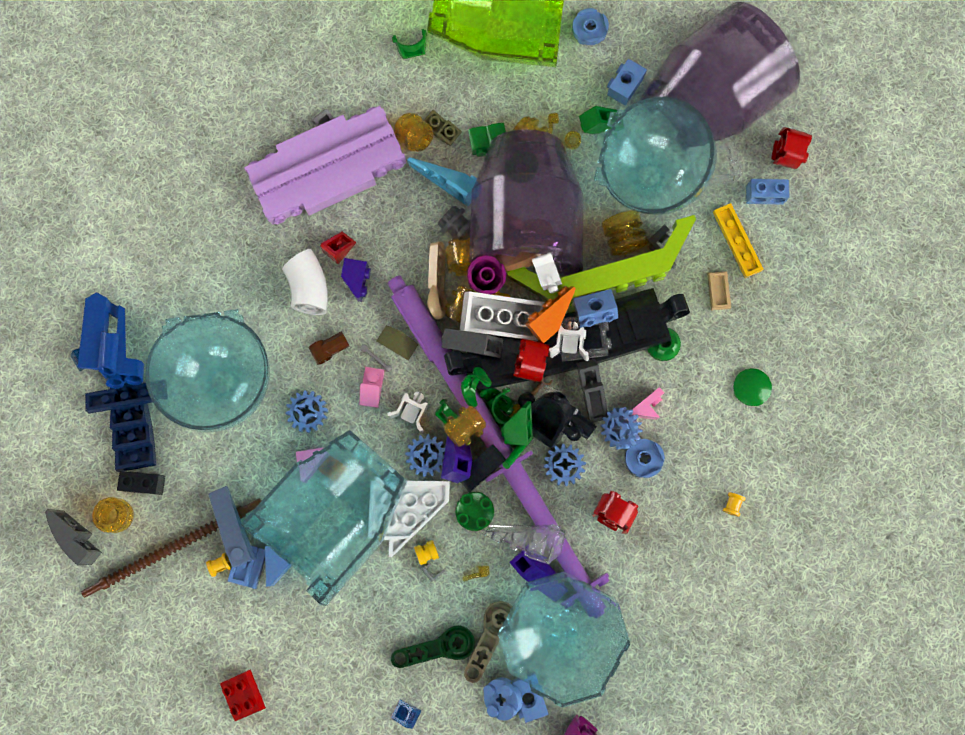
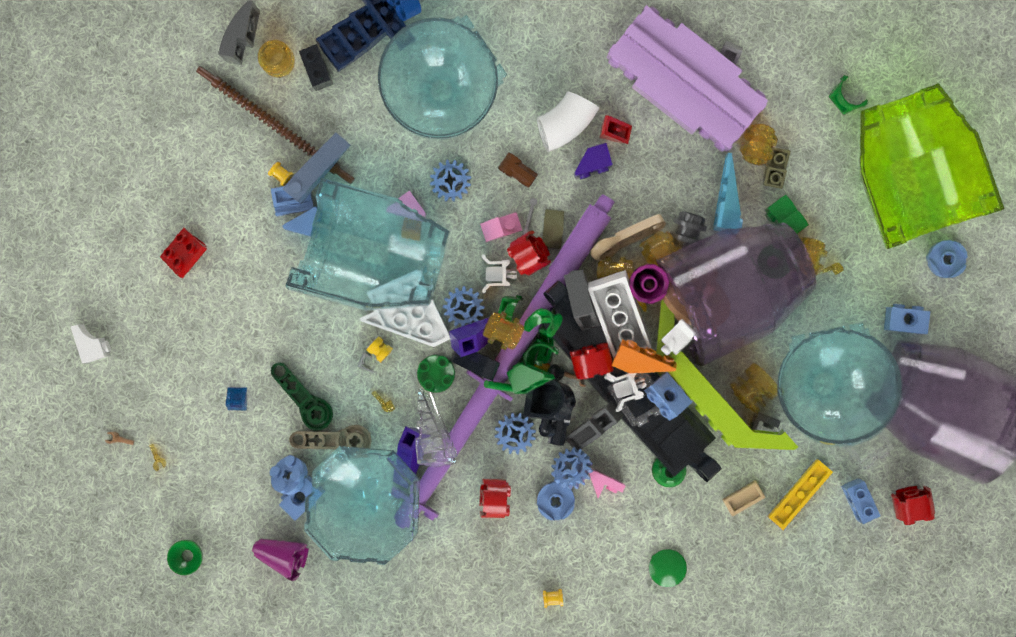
camera: 65 degrees right, 10 degrees up
(407, 371) = (529, 253): none -> red brick
(572, 134) = (823, 290): clear yellow bush -> none
(595, 120) = (855, 310): green slope -> none

